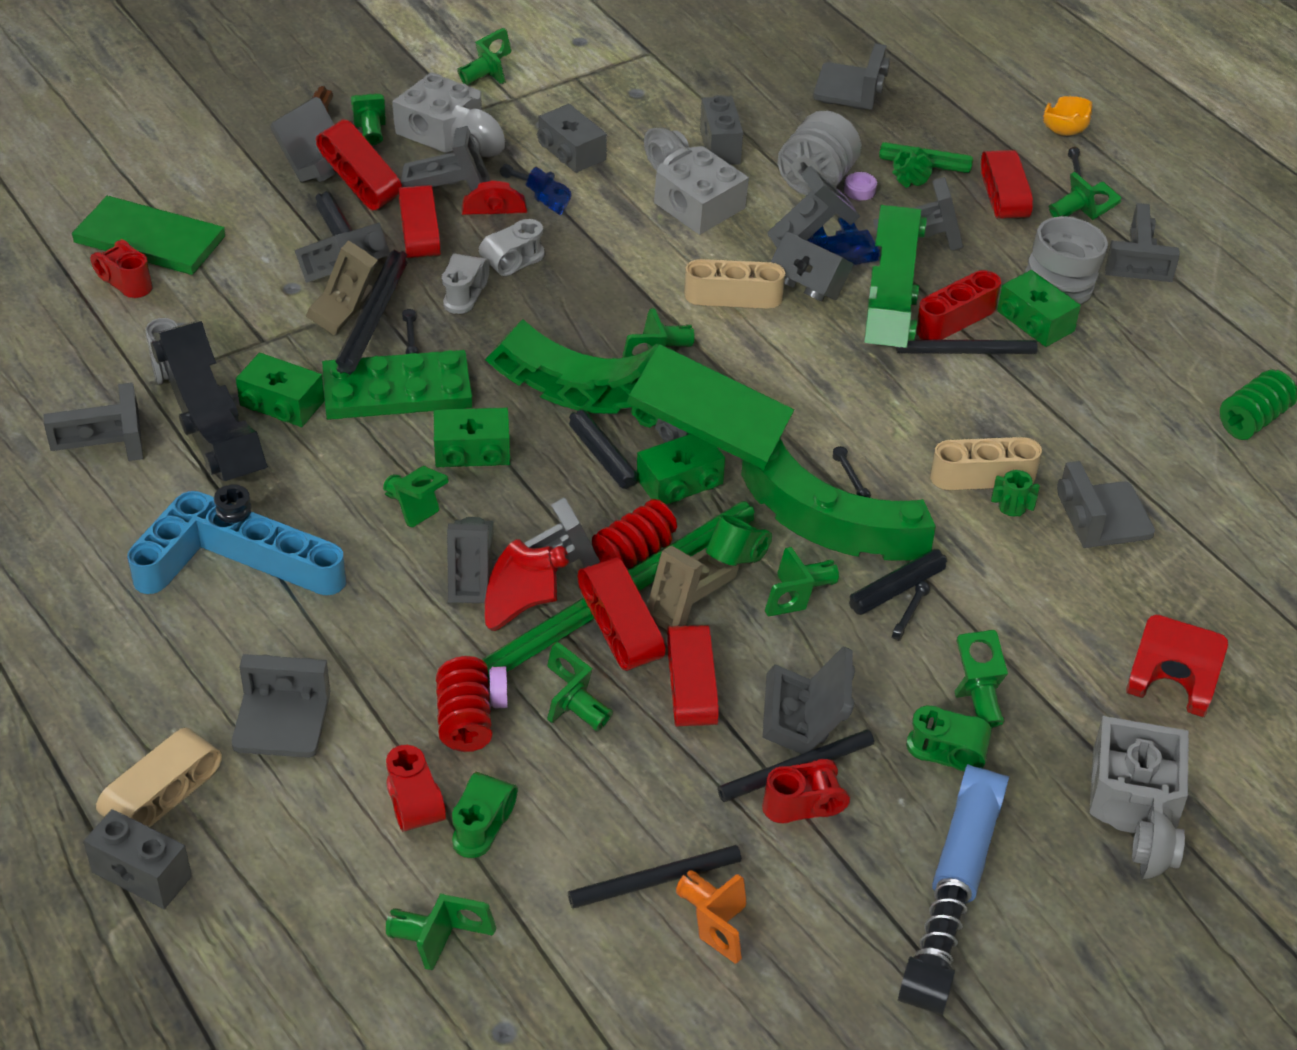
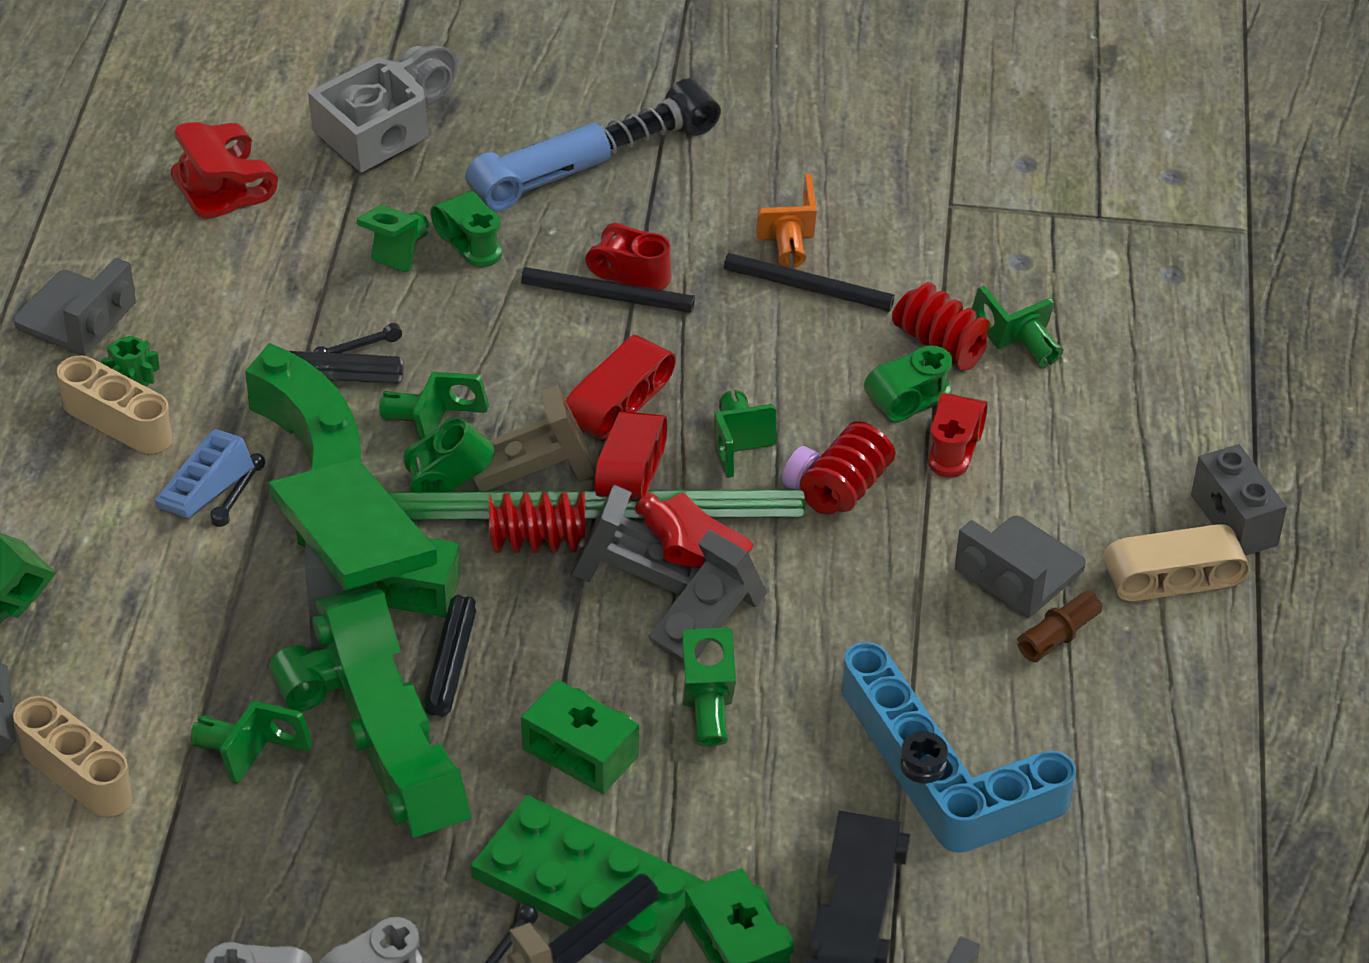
camera: 140 degrees left, 0 degrees up
(218, 687) = (1059, 626): none -> reddish brown axle
(500, 879) = (942, 324): none -> red piece
(805, 710) = (551, 293): dark grey bracket -> none
(874, 460) = (206, 473): none -> medium blue slope

